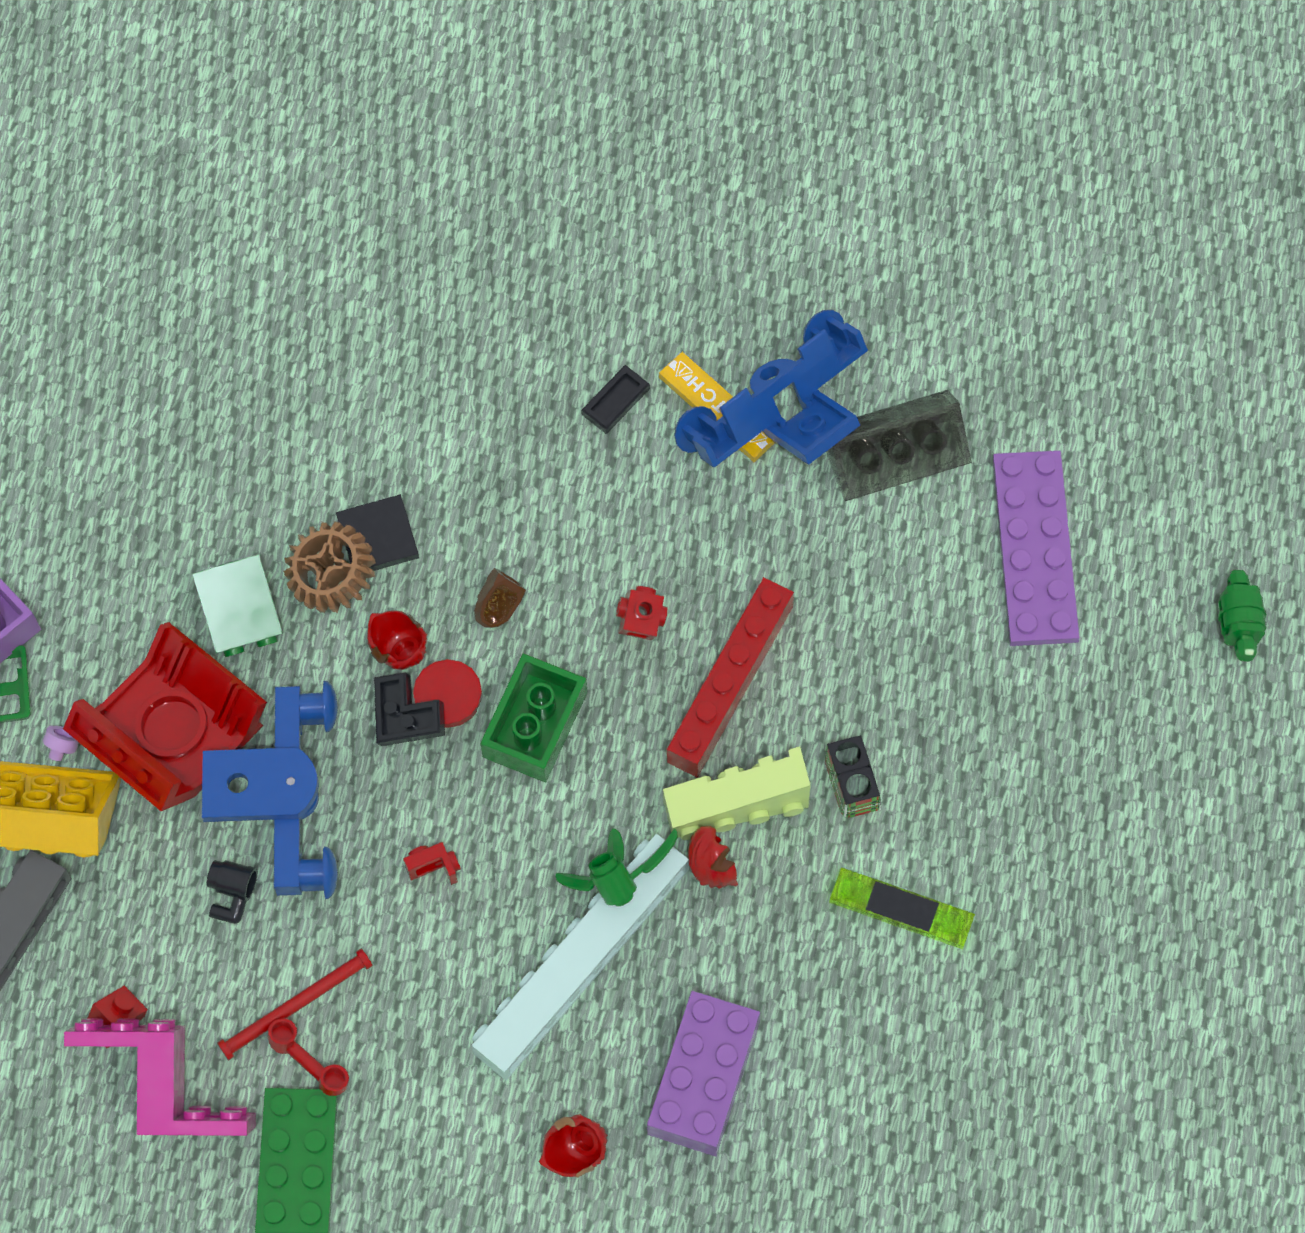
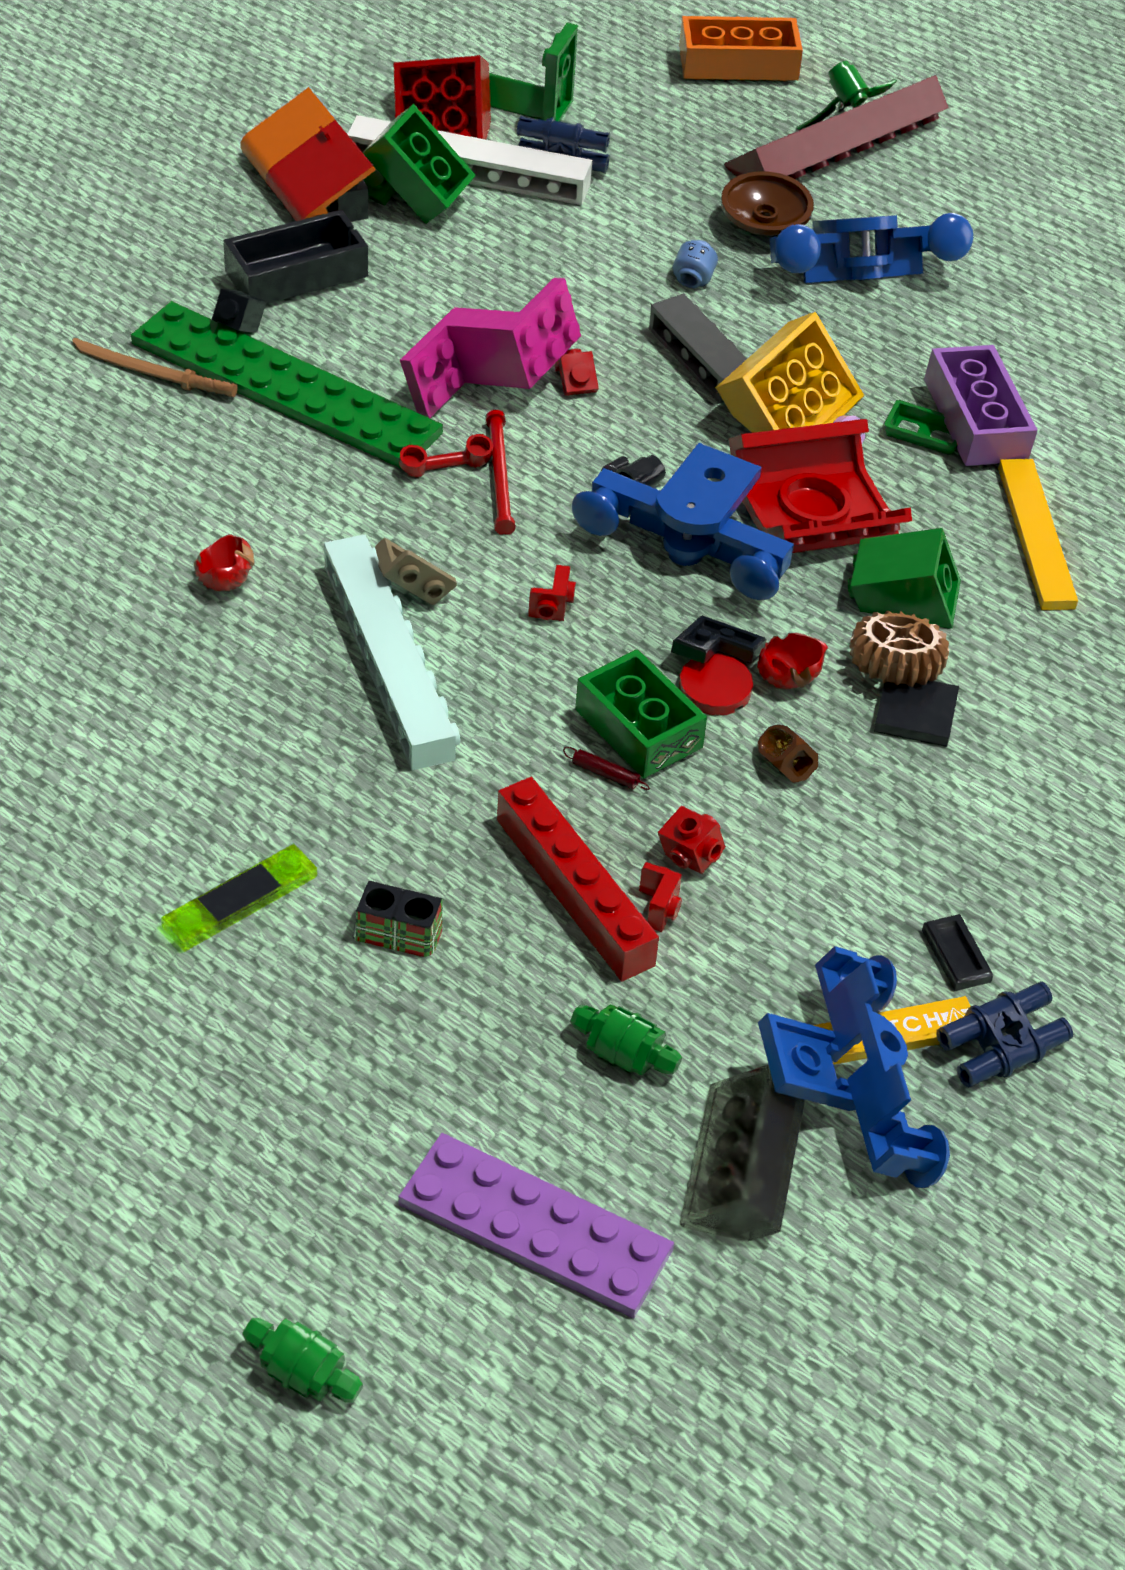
camera: 115 degrees right, 20 degrees down
(97, 537) = (1037, 535): none -> yellow tile
(492, 981) = (413, 572): none -> dark tan bracket
(595, 723) = (606, 768): none -> dark red piece
(610, 873) = (434, 663): green plant -> none
(682, 330) = (1001, 1052): none -> dark blue pin
(703, 1073) = (211, 672): medium lavender brick -> none
(705, 607) = (665, 889): none -> red bracket
(709, 860) = (400, 769): red hair -> none
(739, 796) = (445, 823): yellowish green wedge -> none
(856, 563) = (626, 1039): none -> green piece

